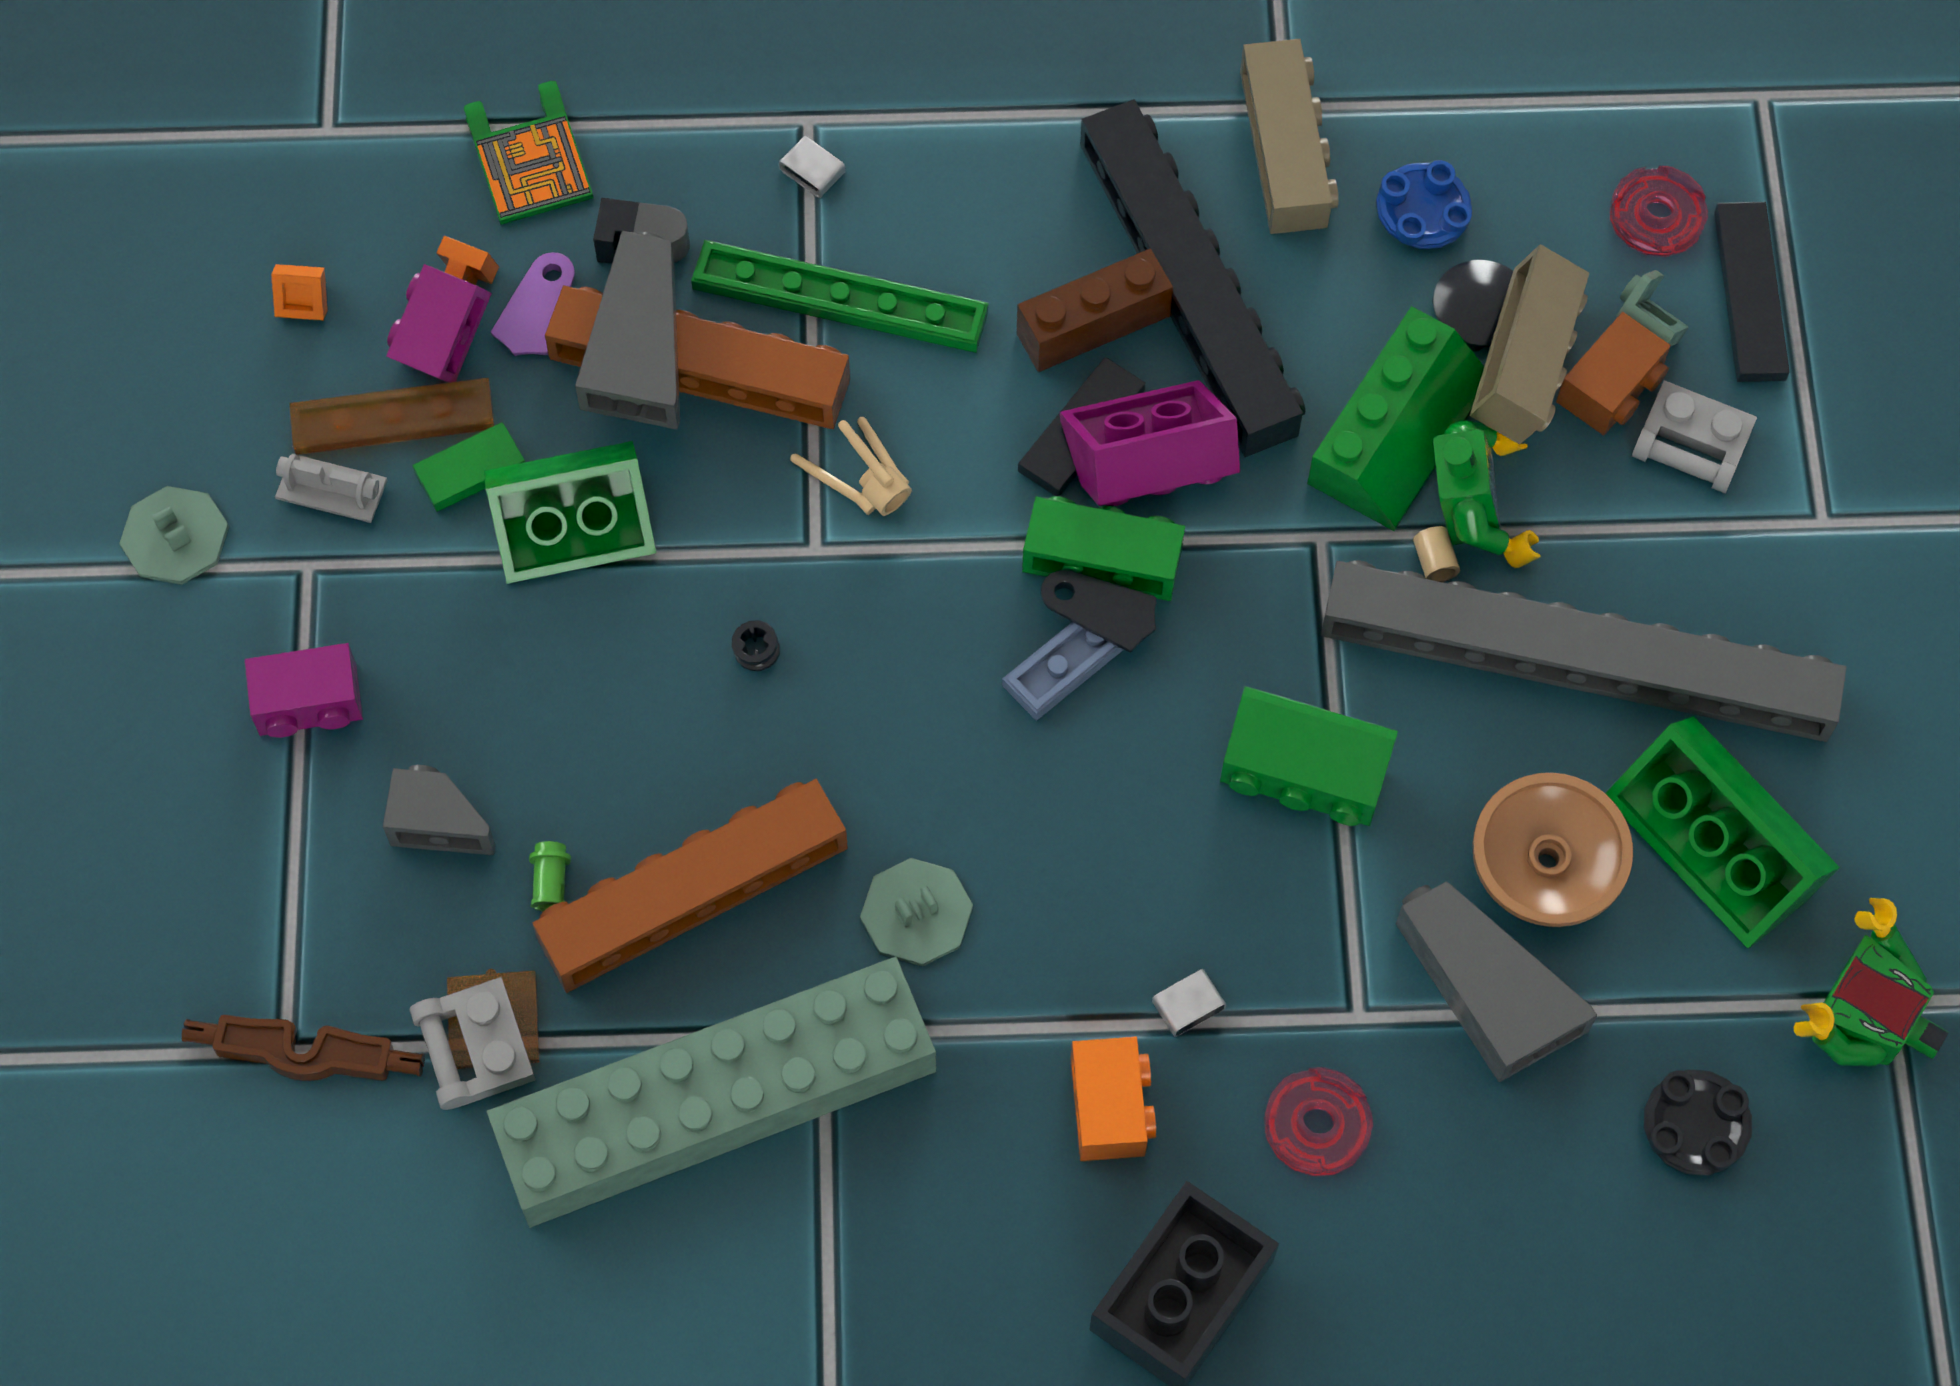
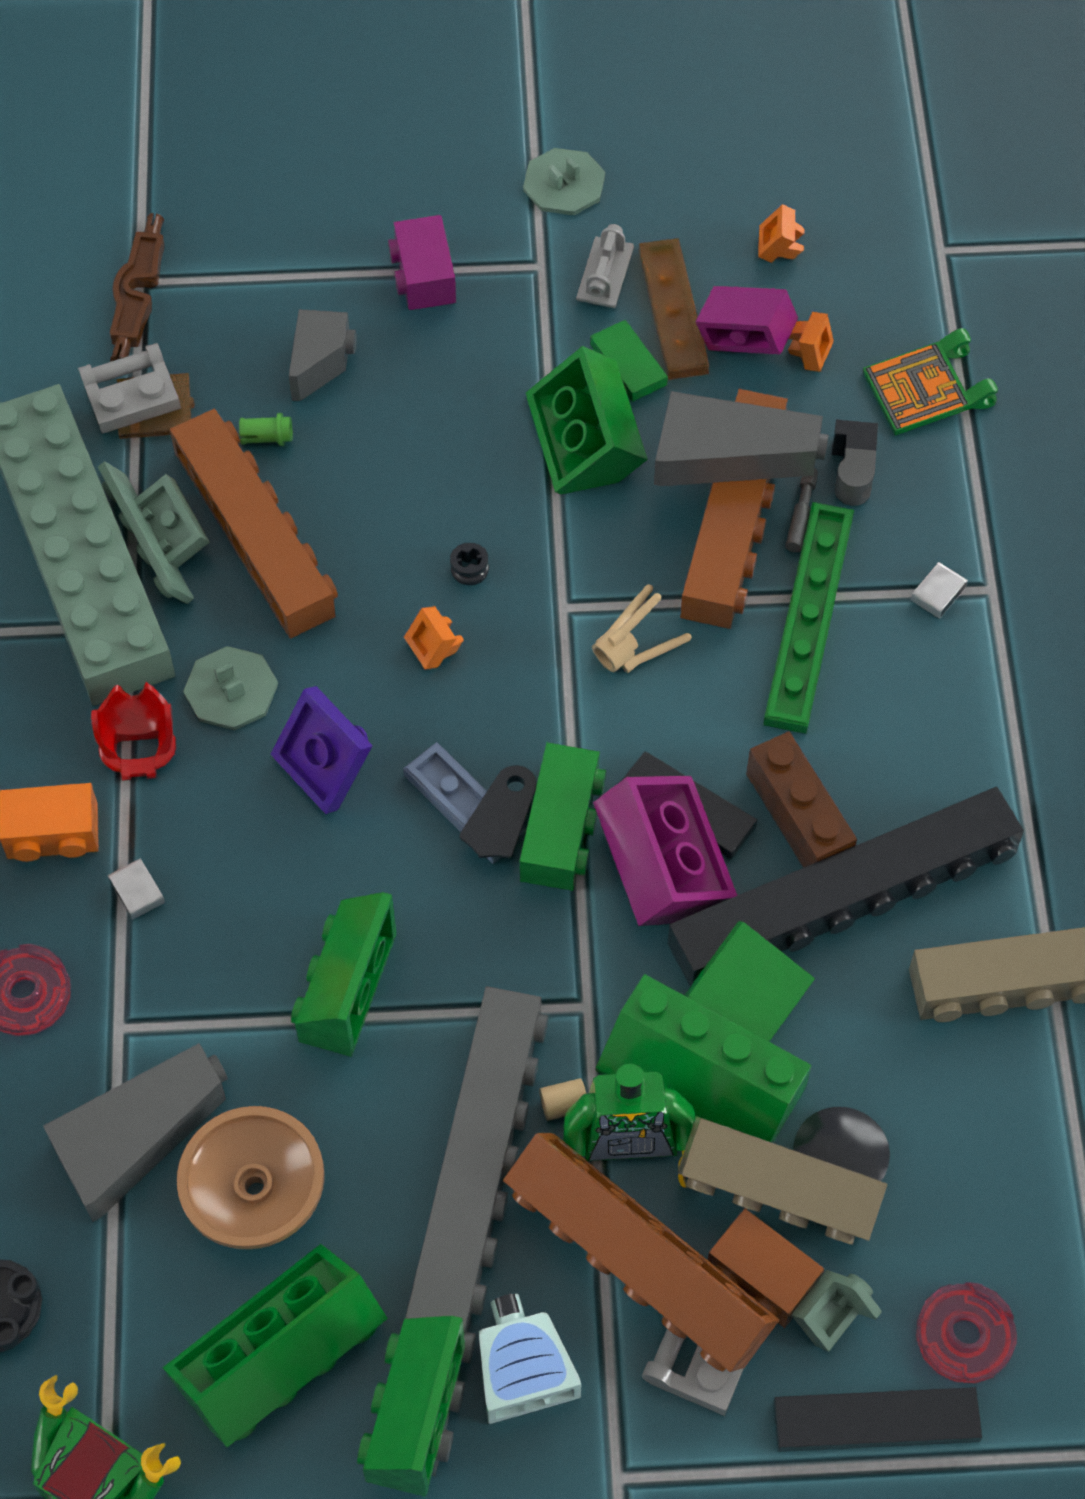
camera: 90 degrees right, 5 degrees down
(530, 308) = (798, 394): medium lavender piece -> none
(692, 988) = (161, 523): none -> sand green bracket
(715, 298) = (801, 514): none -> dark grey piece
(866, 681) = (432, 638): none -> orange tile
(962, 1002) = (130, 719): none -> red helmet
(1028, 788) = (321, 749): none -> dark purple tile
(1314, 365) = (750, 982): none -> green tile
(1424, 204) = (947, 1101): blue dish -> none
(1617, 473) = (640, 1252): none -> dark orange brick
(1727, 594) = (524, 1363): none -> torso
(1809, 661) = (413, 1403): none -> green slope

